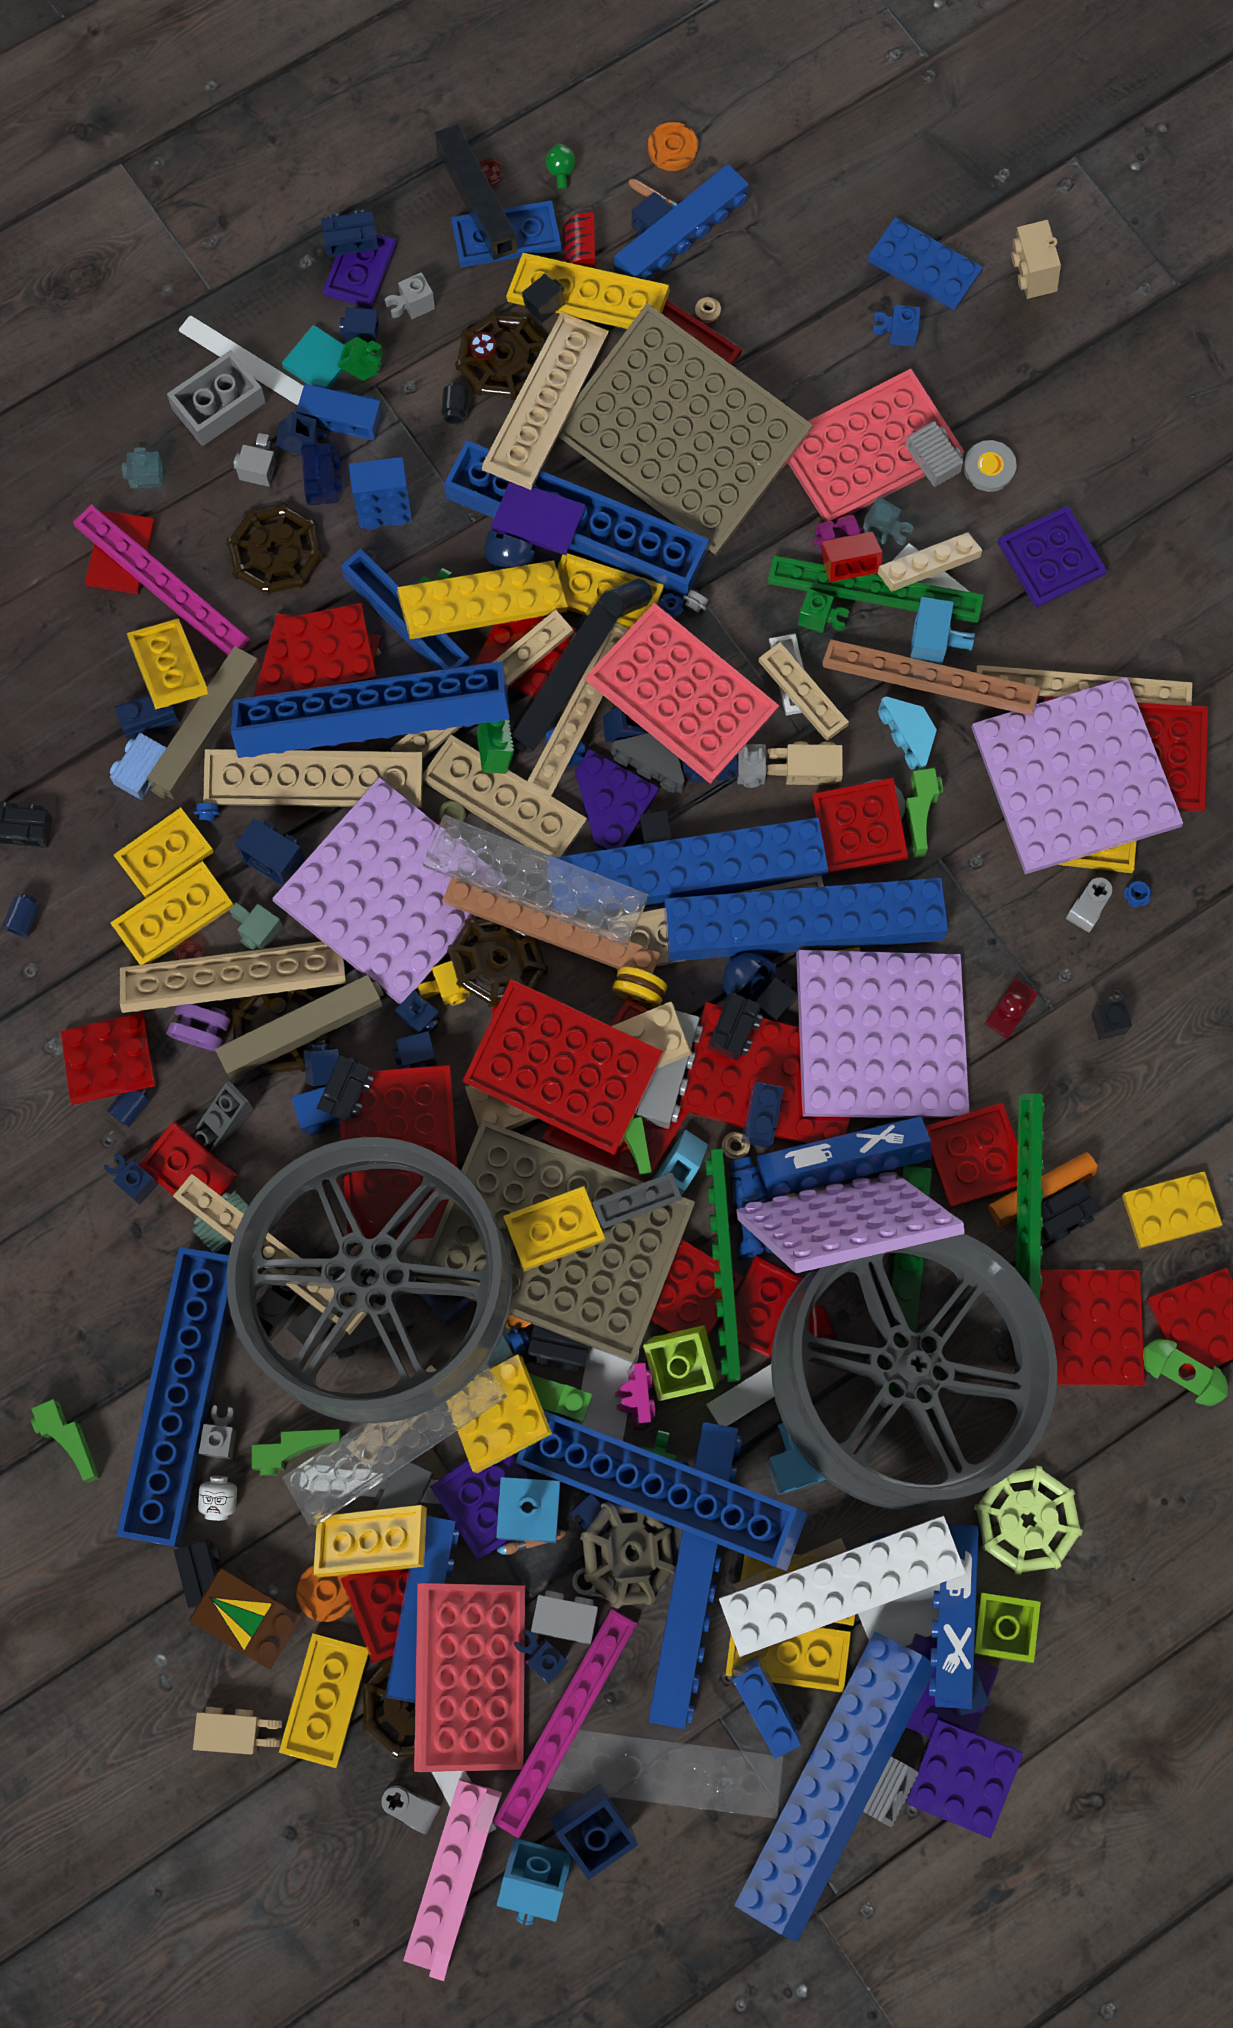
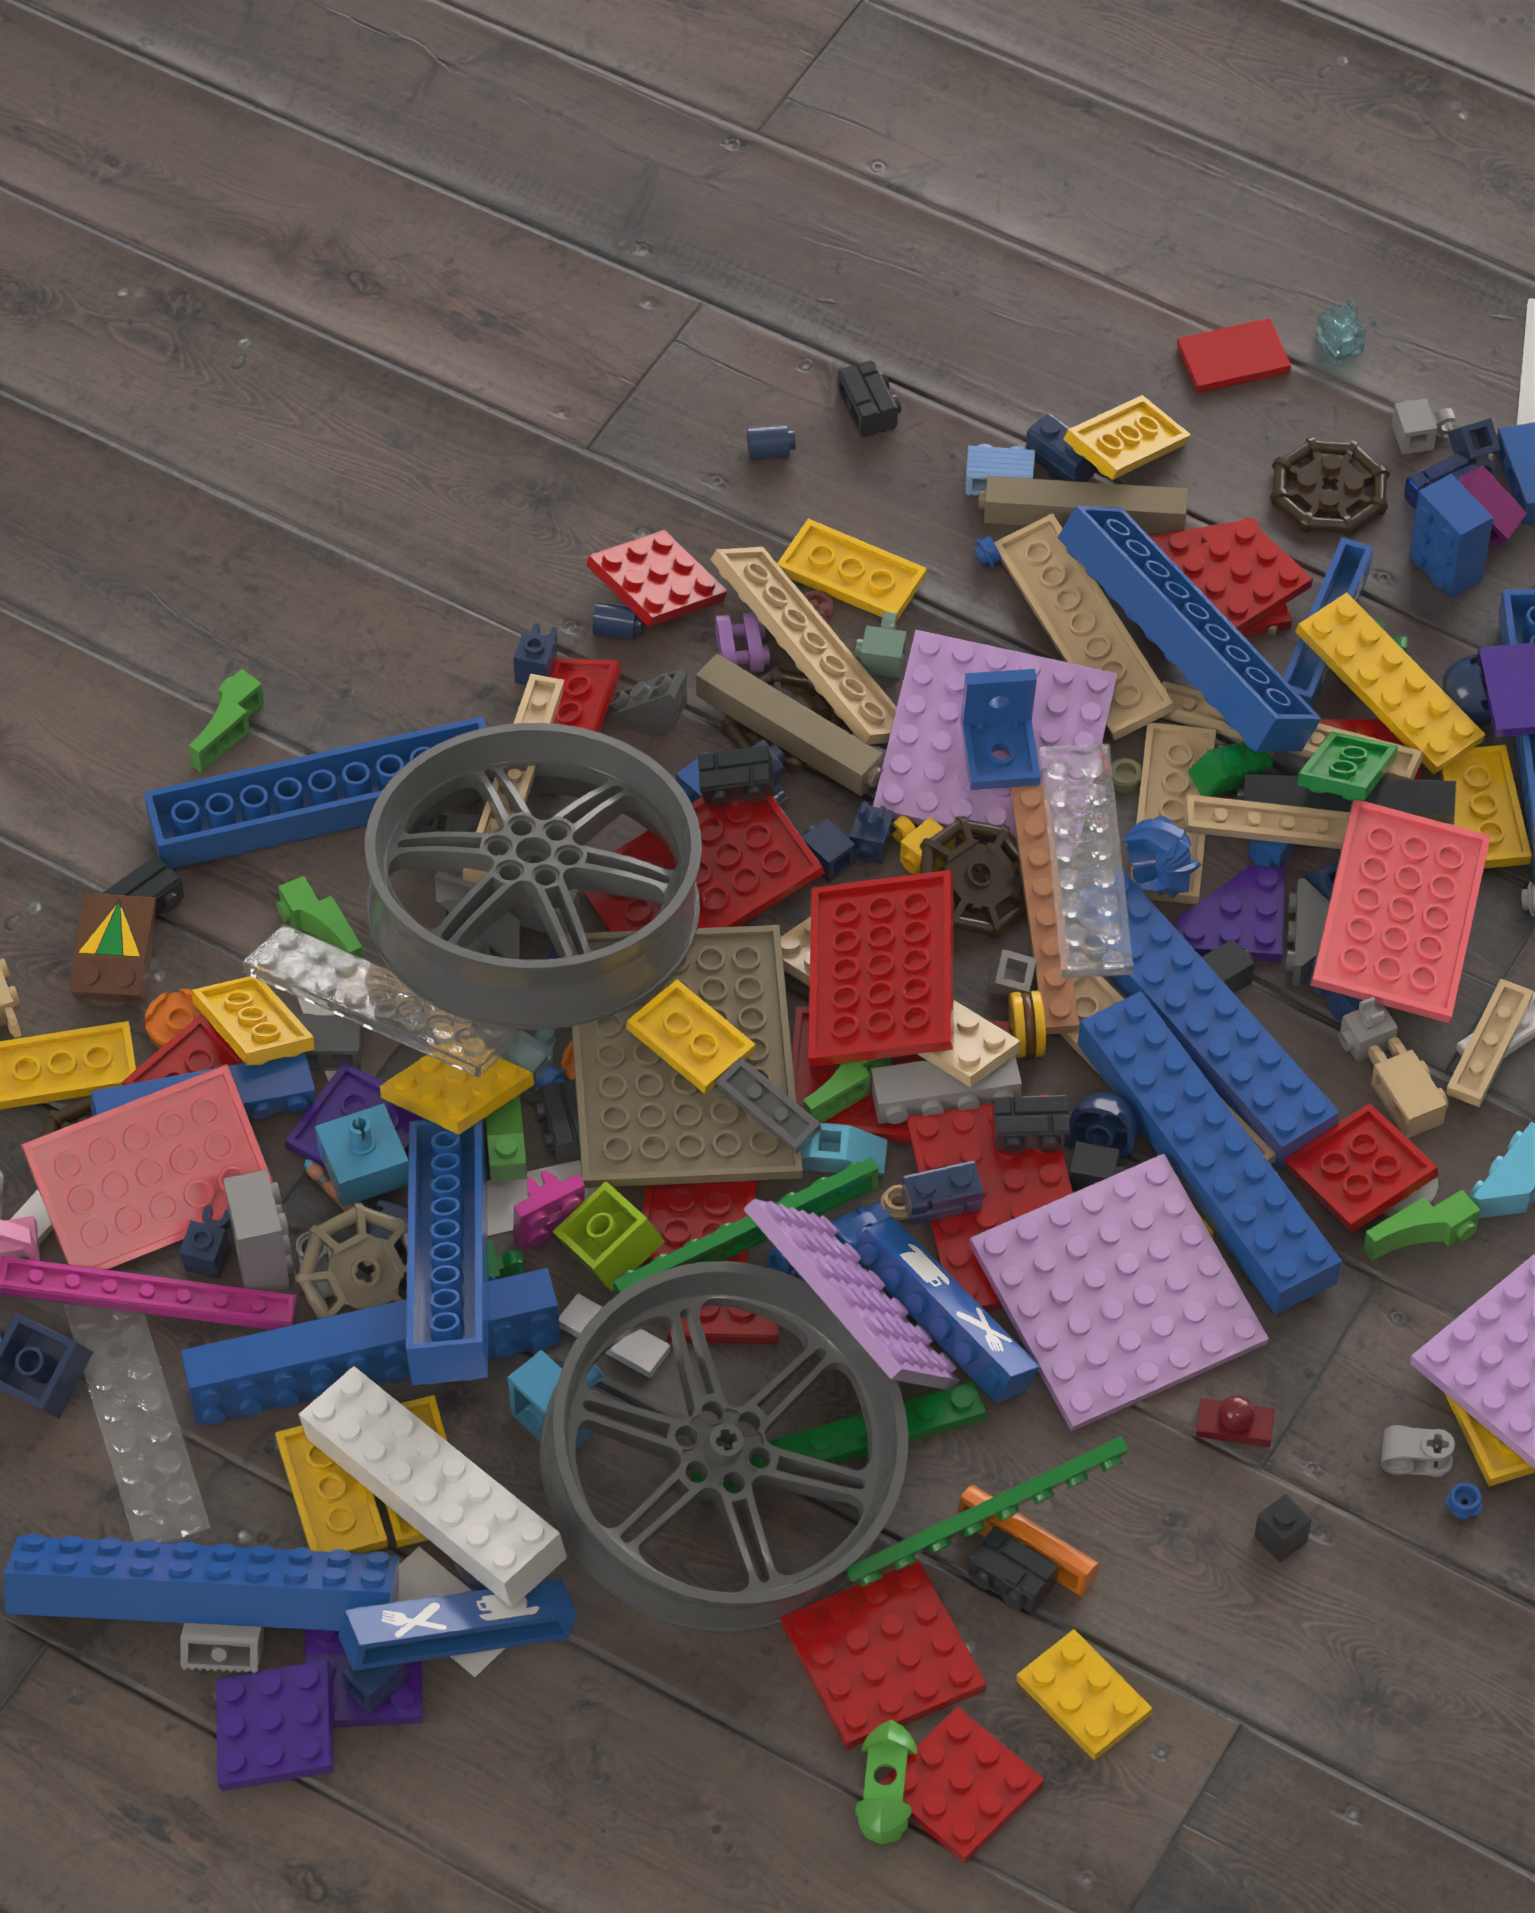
camera: 65 degrees right, 20 degrees down
(160, 581) = (1222, 400): dark pink tile -> none
(163, 853) = (917, 533): yellow plate -> none
(216, 398) = (1465, 355): light grey brick -> none
(217, 1498) = (231, 876): white head -> none
(218, 1439) = (296, 849): light grey brick -> none
(269, 851) = (971, 607): dark blue brick -> none
(356, 450) = (1497, 501): none -> magenta brick
(392, 879) = (995, 718): none -> blue bracket
(553, 664) = (1347, 766): none -> green plate
(554, 828) = (1160, 856): none -> blue hair
(593, 977) = (1011, 973): none -> light grey brick
(627, 597) = (1482, 813): black brick -> none
(677, 603) = (1511, 885): blue plate -> none
(766, 1707) = (257, 1479): blue brick -> none
(820, 1324) = (734, 1369): red cone -> none
(974, 1154) = (1022, 1441): red plate -> none
(1006, 1627) = (471, 1695): lime brick -> none
(1031, 1537) = (611, 1661): yellowish green plate -> none

